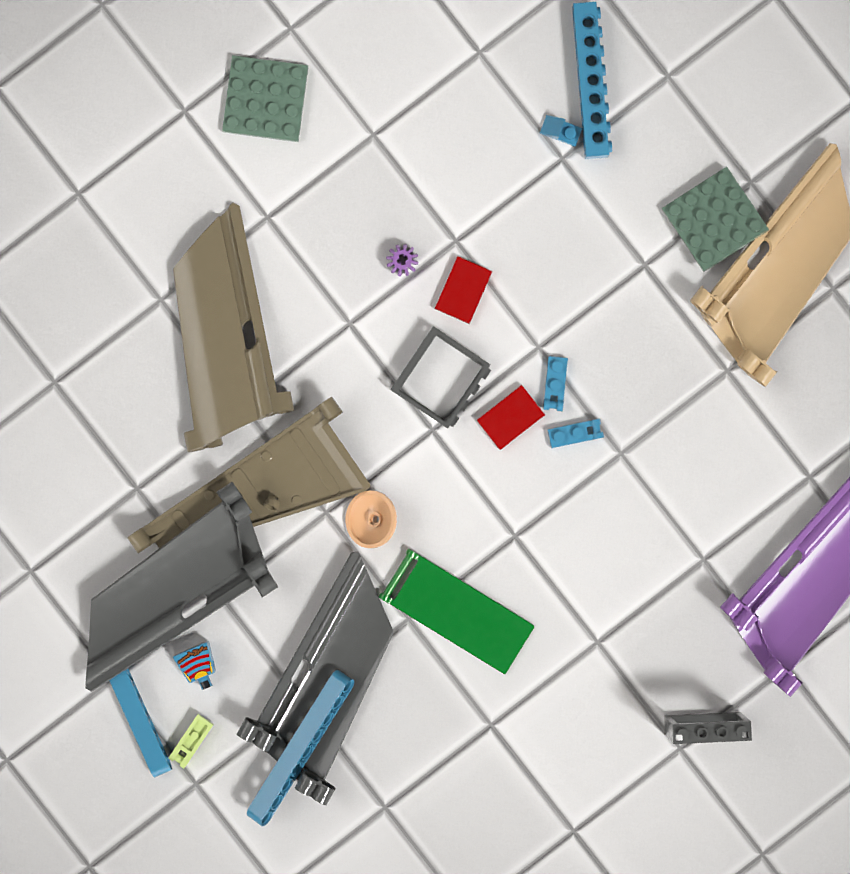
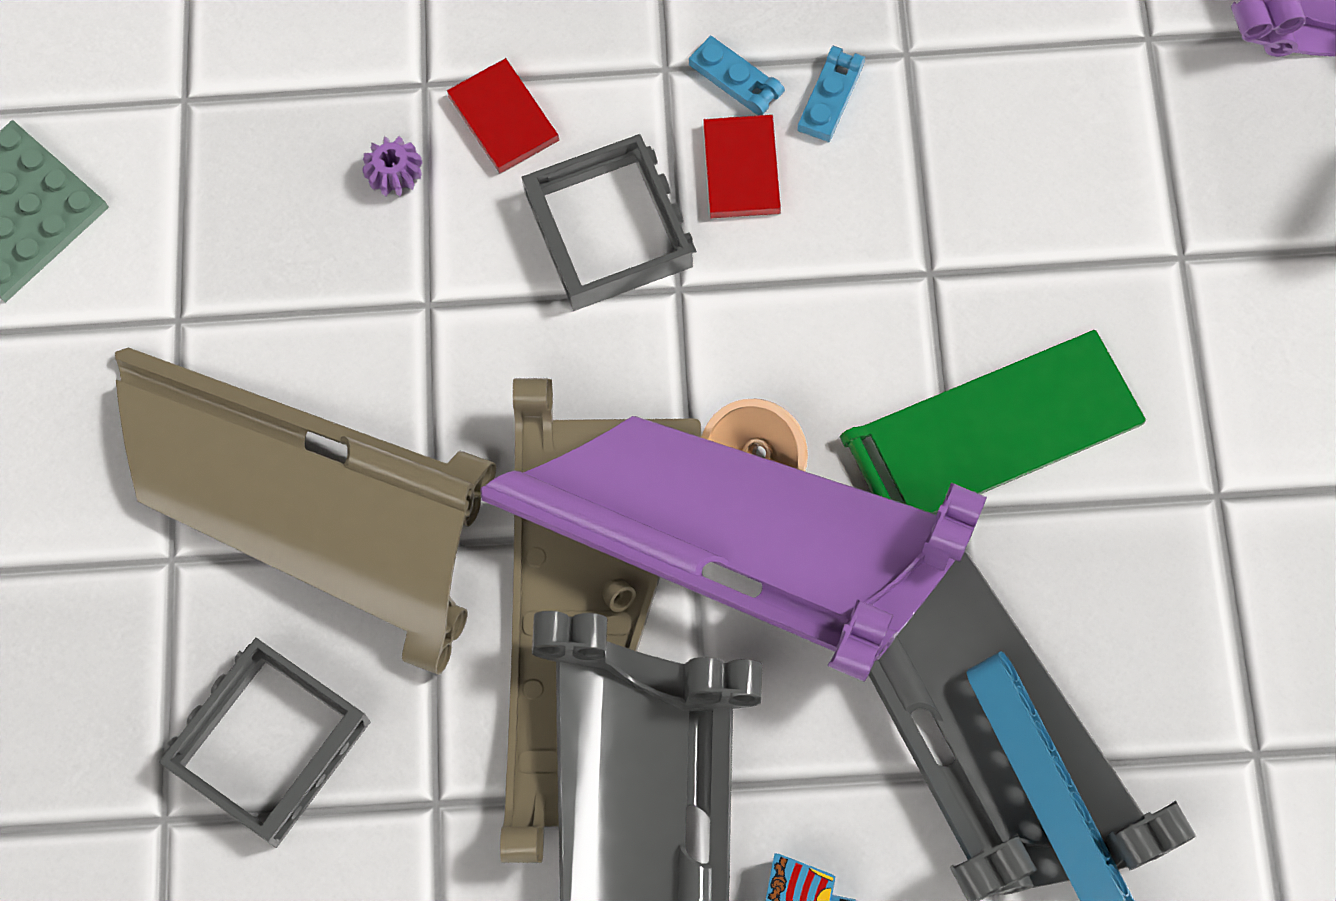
camera: 50 degrees left, 20 degrees down
(104, 369) = (312, 778): none -> dark grey window
(325, 504) = (828, 555): none -> medium lavender panel

